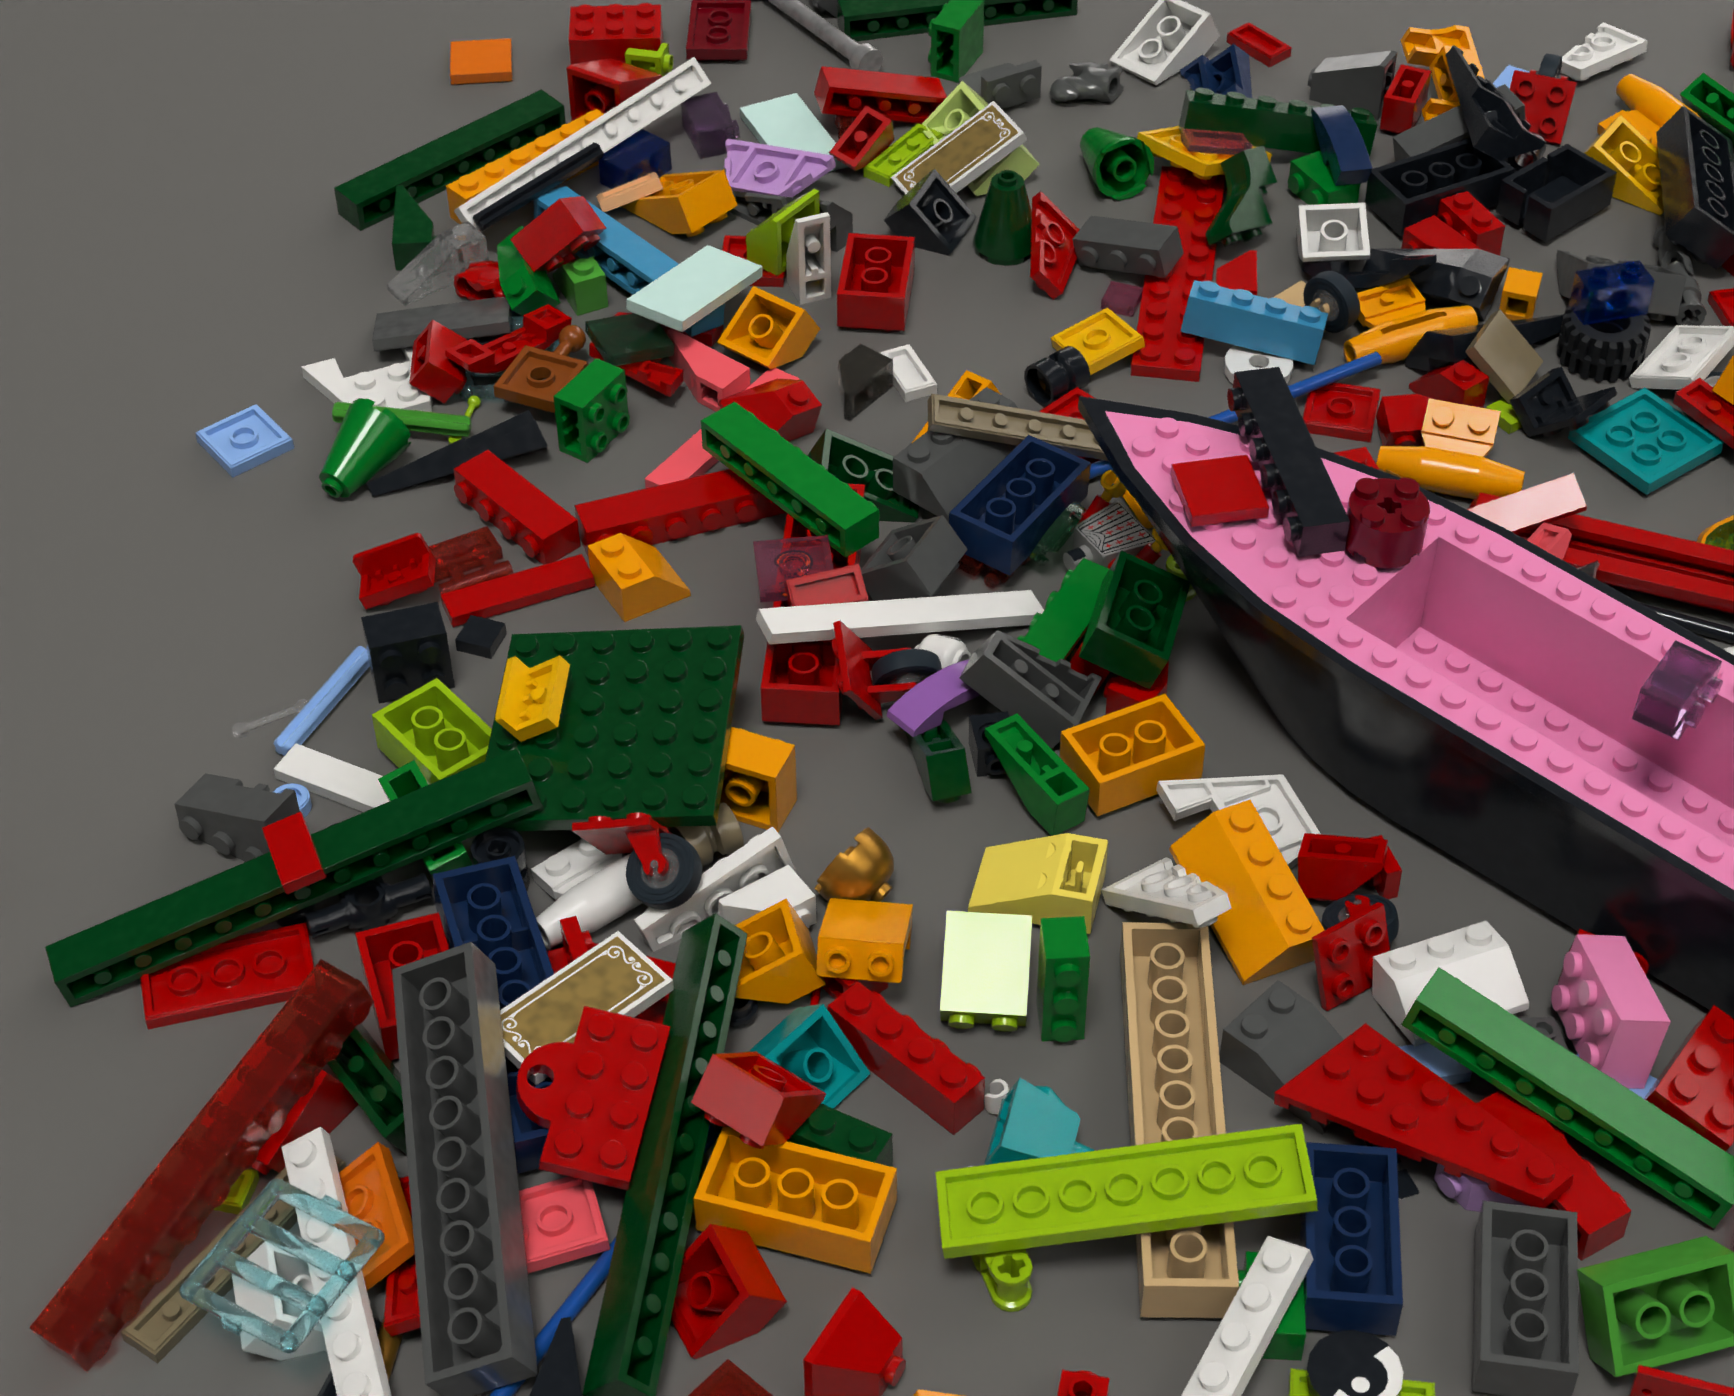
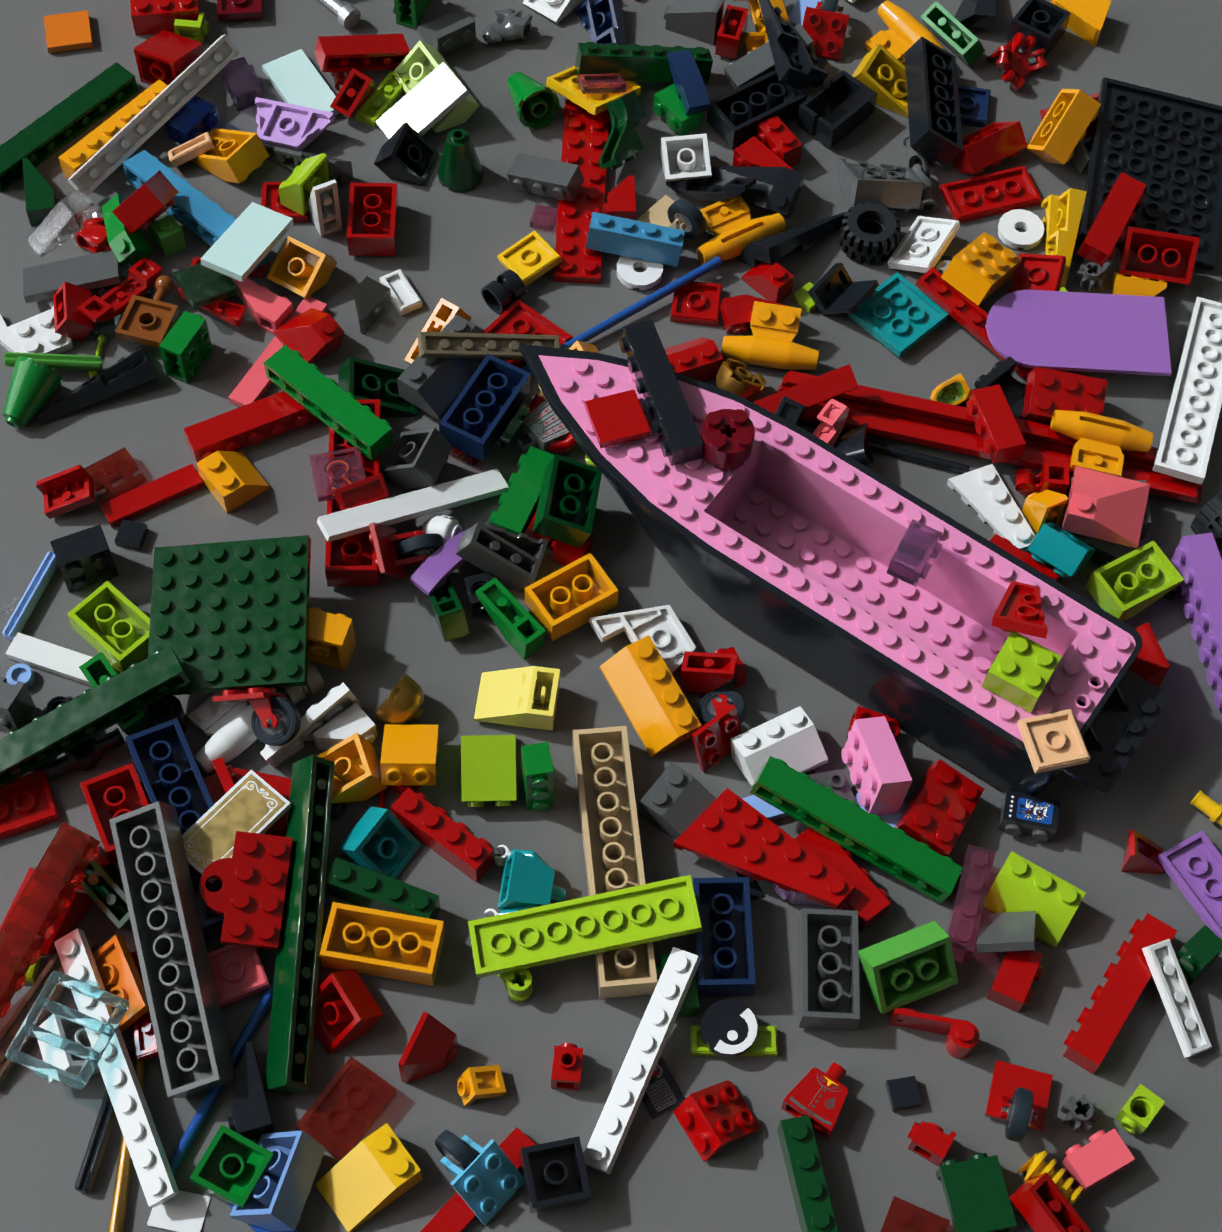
camera: 10 degrees left, 15 degrees up
(293, 852) = (31, 733): red tile -> none
(516, 508) = (142, 429): red brick -> none
(532, 697) = (174, 602): yellow bracket -> none
(538, 186) = (125, 154): black axle -> none
(755, 1098) = (352, 883): red slope -> none
(1051, 246) = (492, 179): red wing -> none
(1168, 894) = (600, 704): white wing -> none
(1504, 355) = (803, 256): dark tan tile -> none
(1520, 293) = (813, 198): light orange brick -> none
(1611, 292) = (874, 204): clear blue brick -> none

